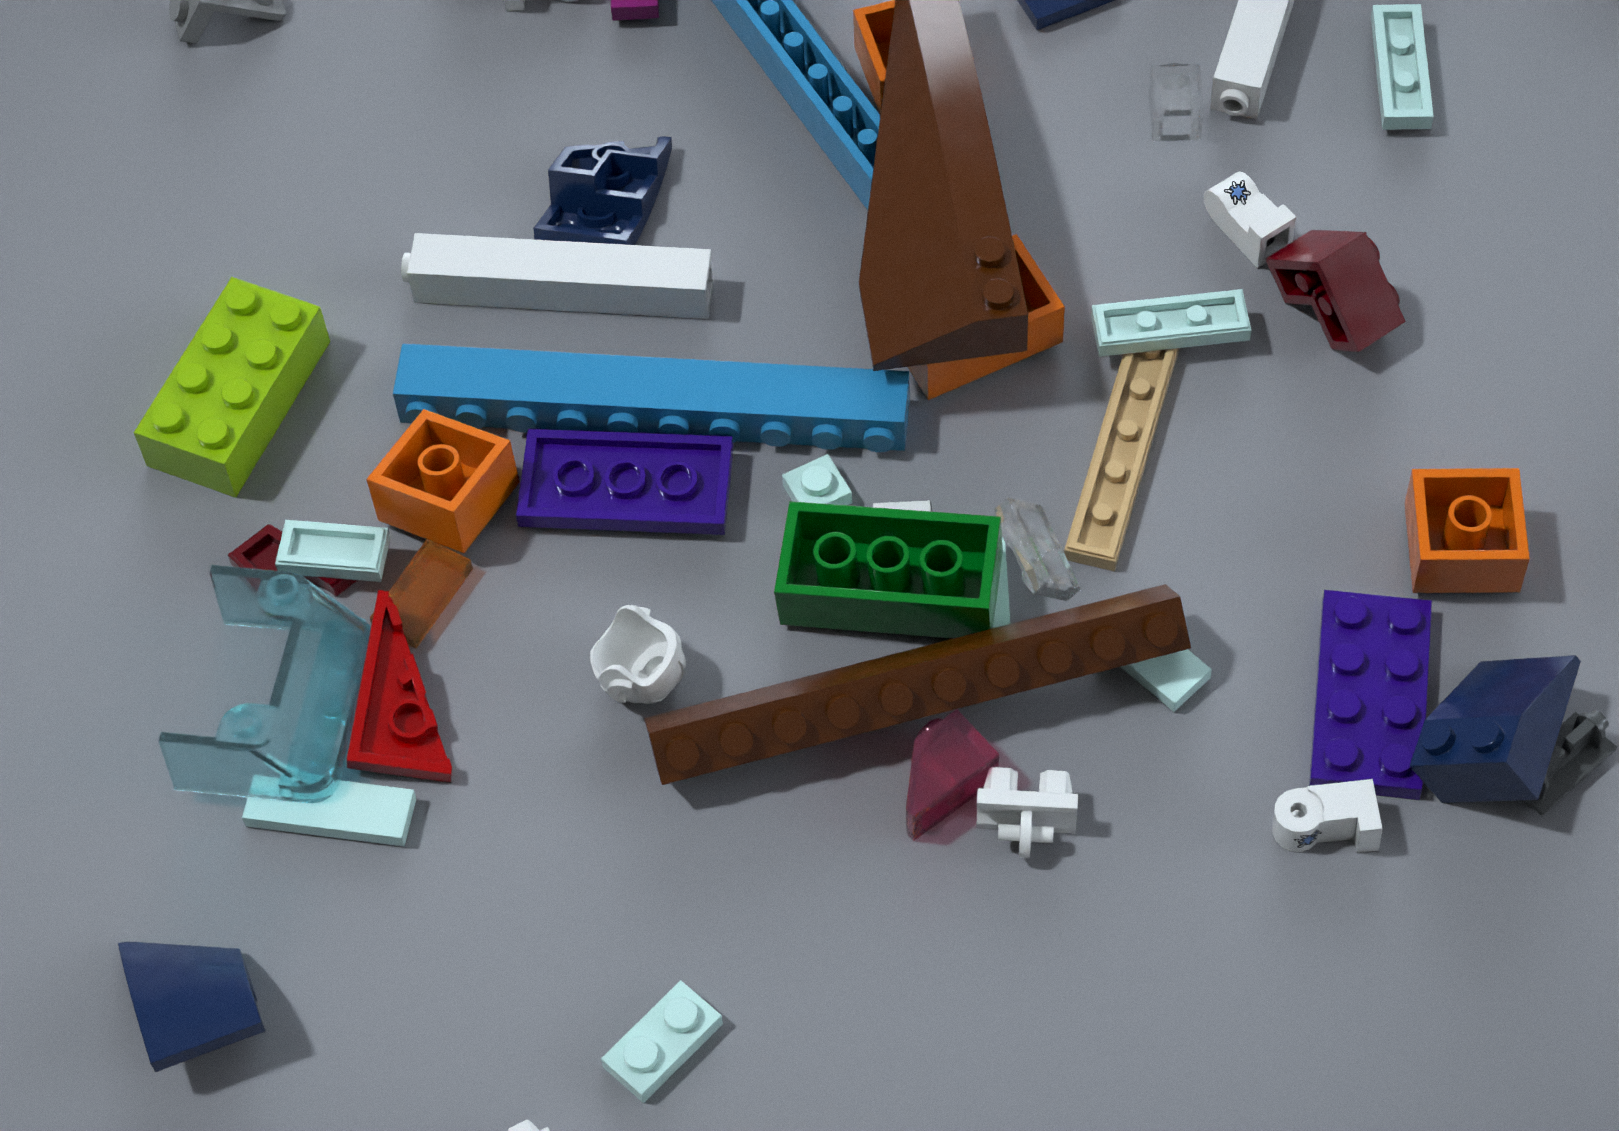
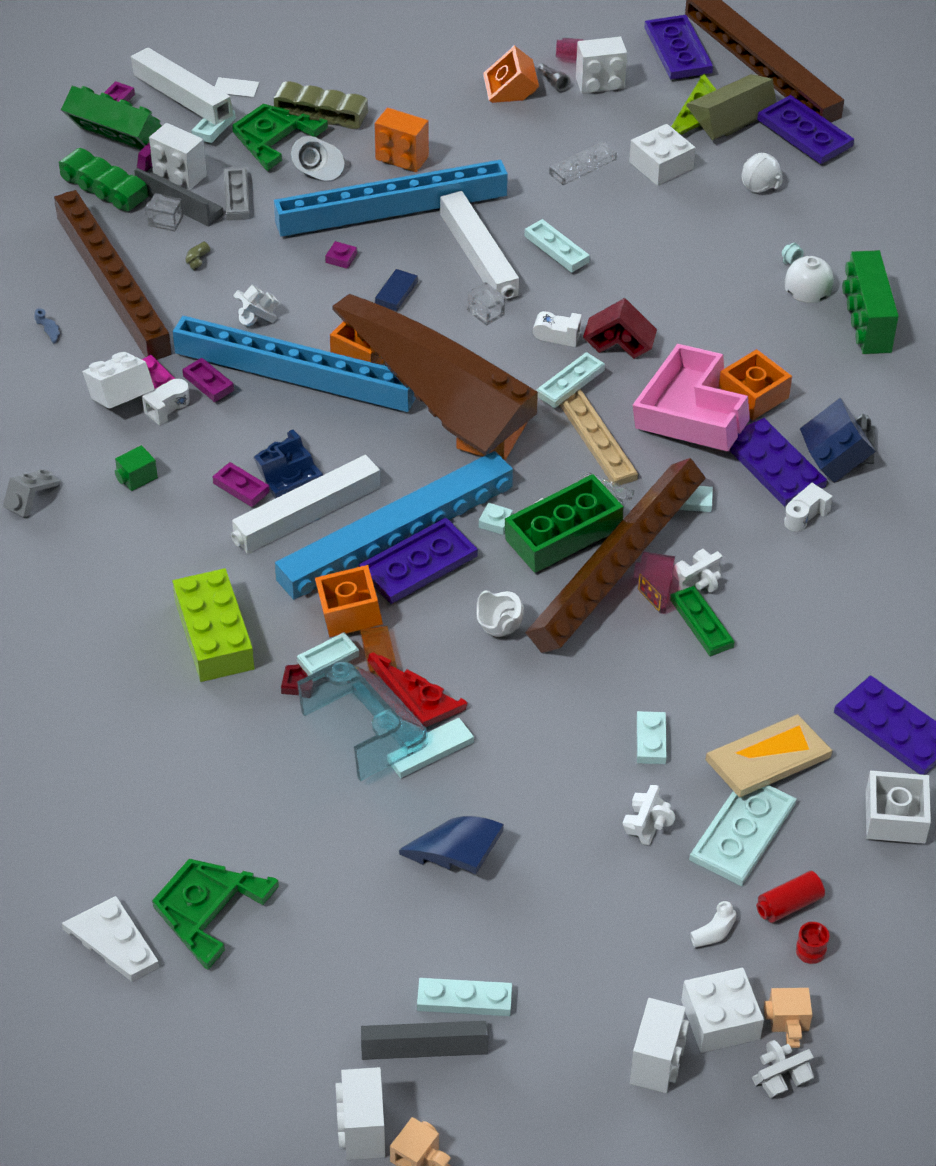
camera: 45 degrees left, 10 degrees down
(388, 60) = (136, 468): none -> green brick
(506, 181) = (240, 484): none -> magenta plate
(952, 897) = (702, 621): none -> green tile
(1301, 487) = (686, 401): none -> bright pink piece

